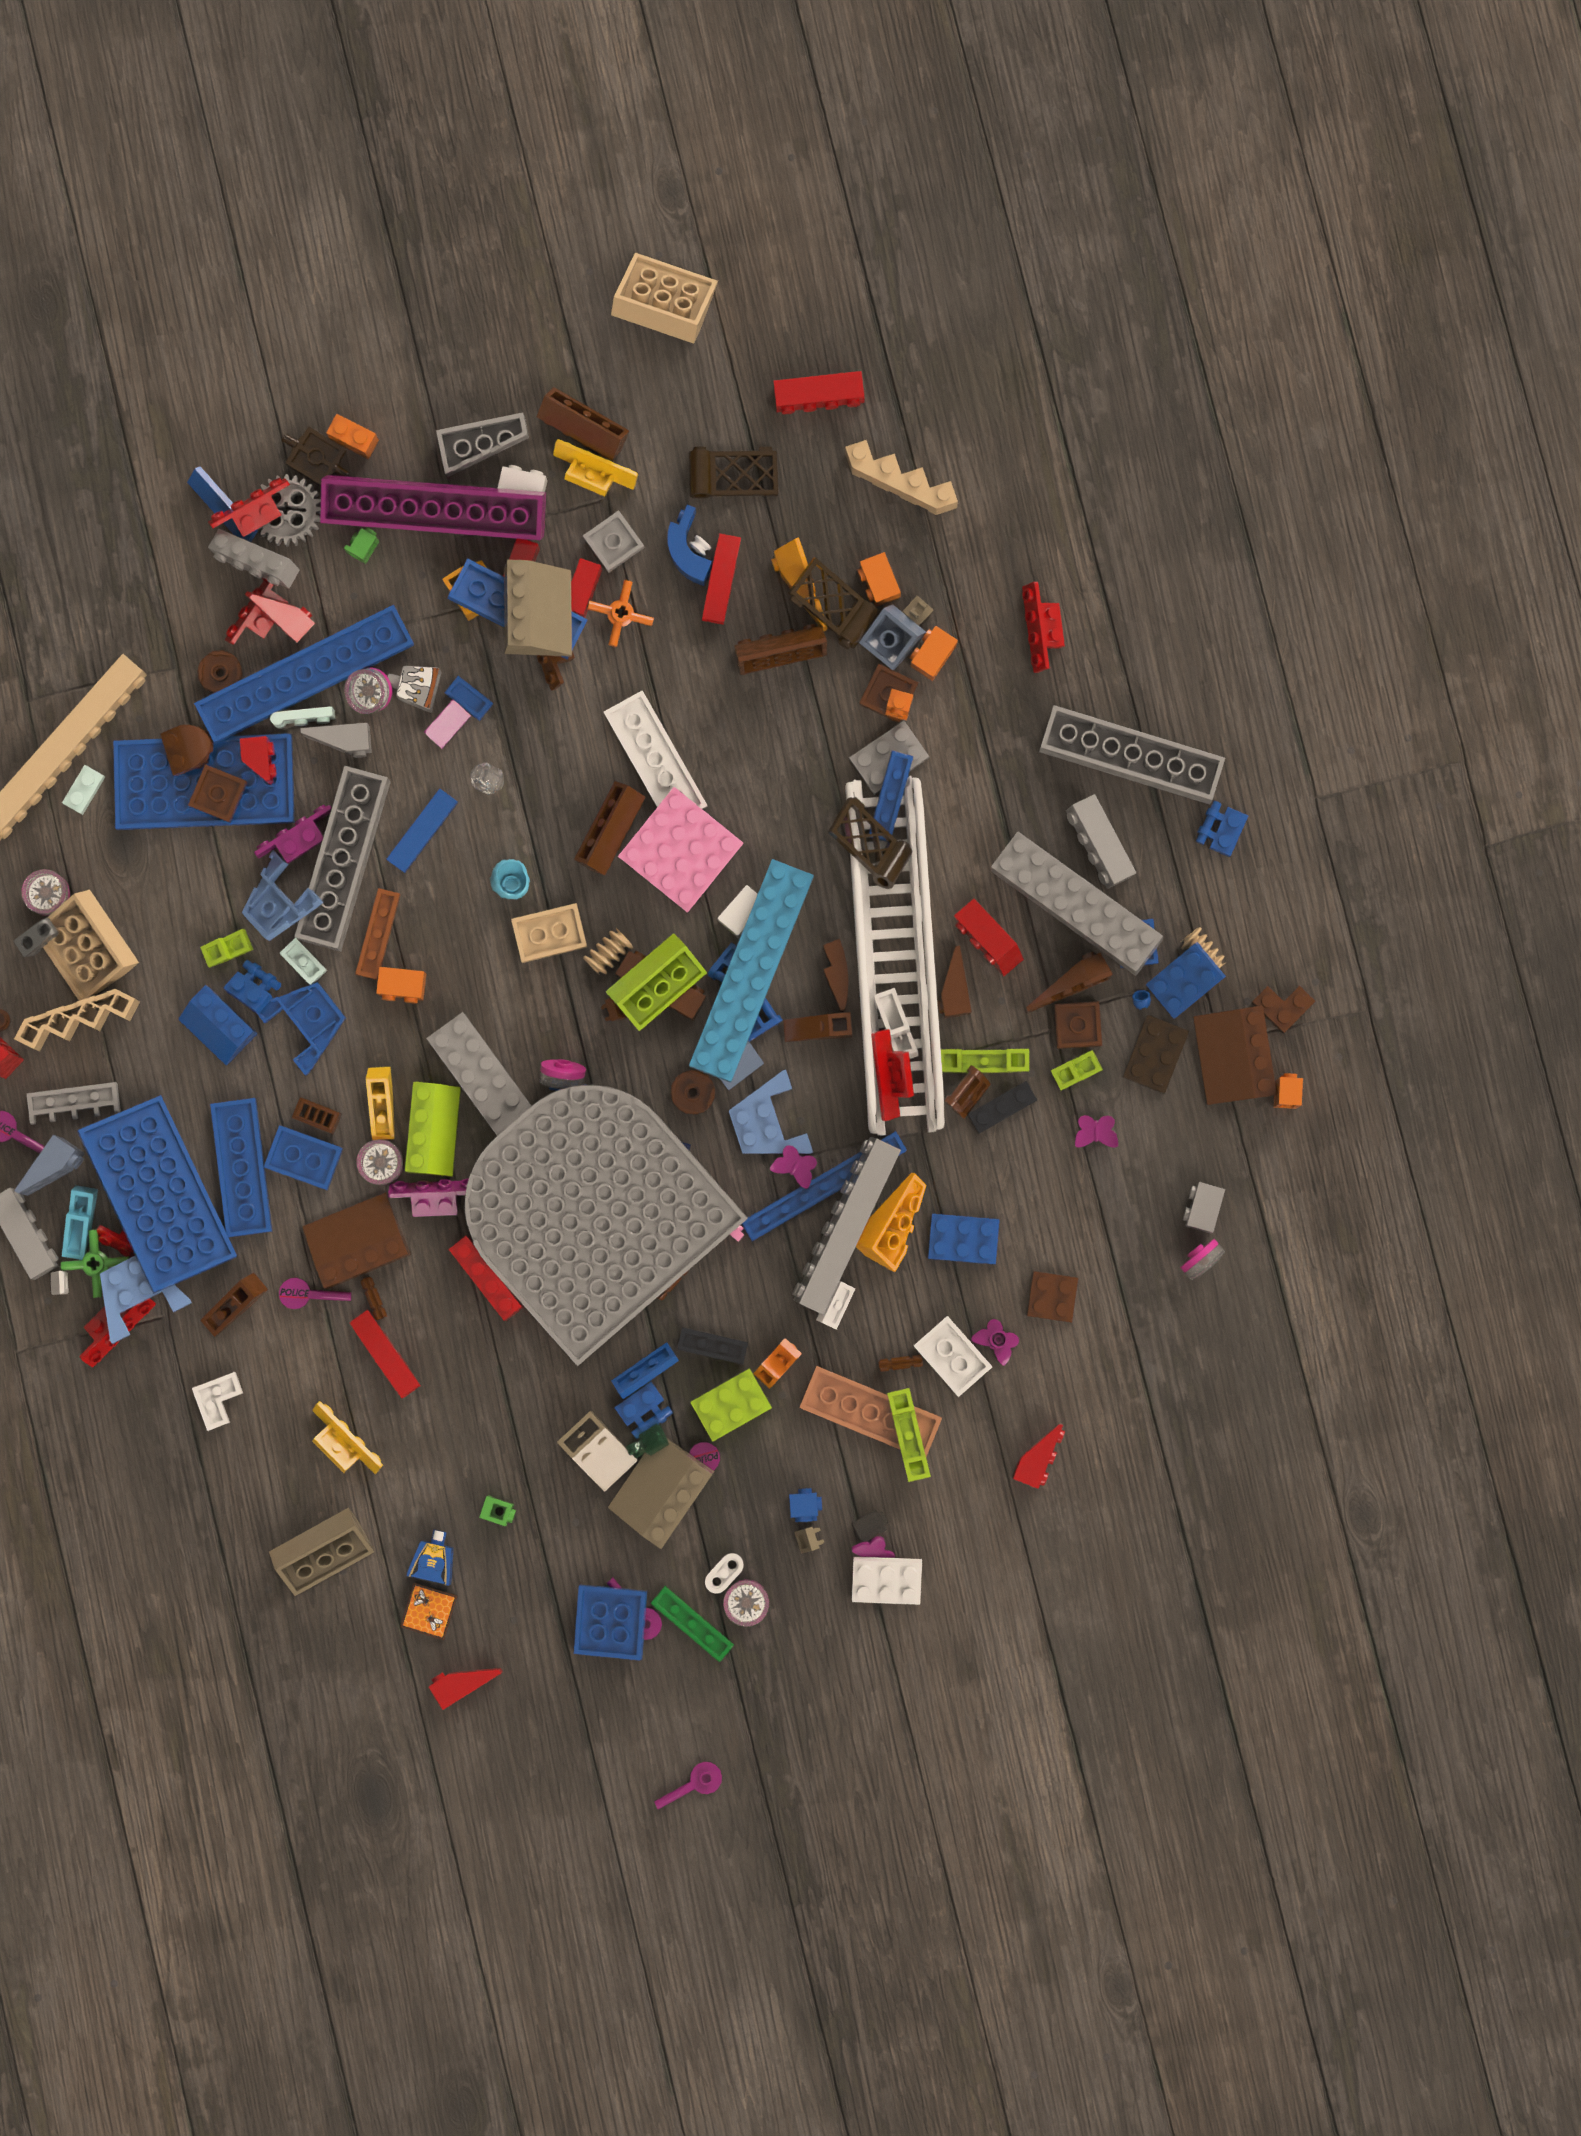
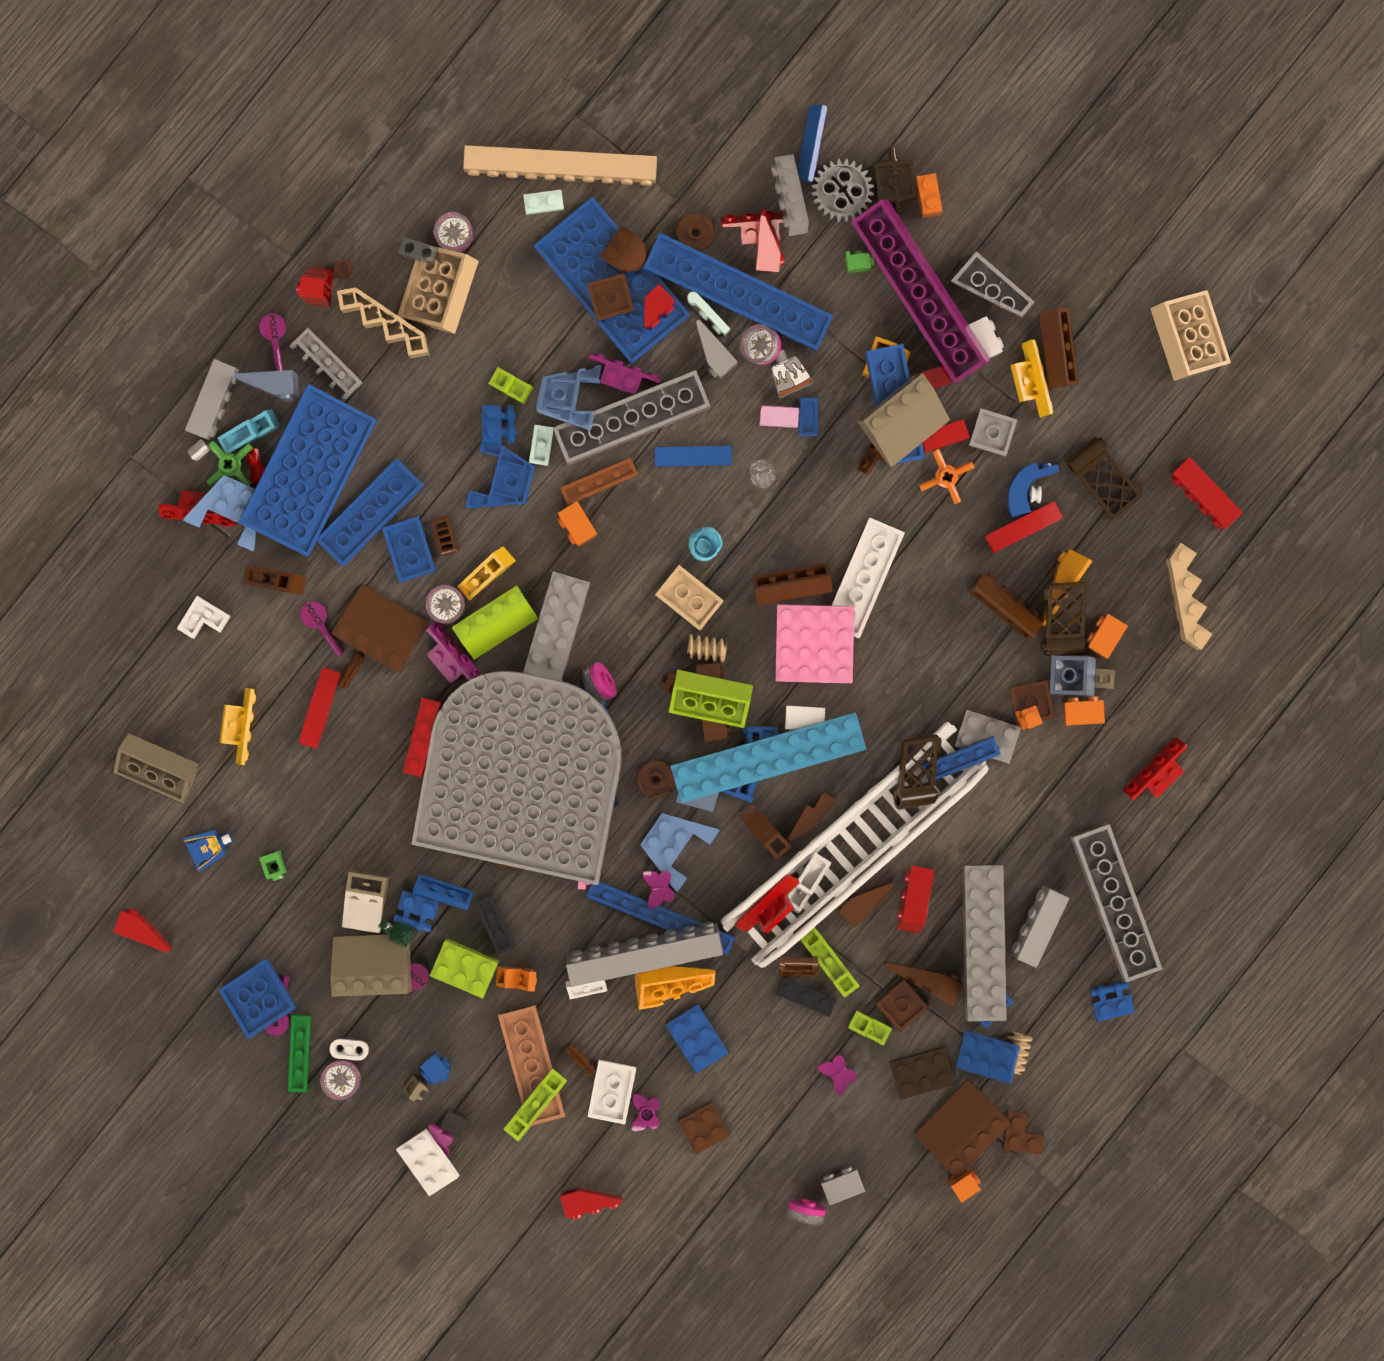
camera: 40 degrees right, 5 degrees up
(216, 1025) = (453, 420): blue slope -> none
(253, 512) = (824, 169): red bracket -> none
(429, 1611) = (172, 870): tile -> none
(704, 1778) = (203, 1140): magenta piece -> none
(1137, 999) = (956, 1035): blue hinge -> none

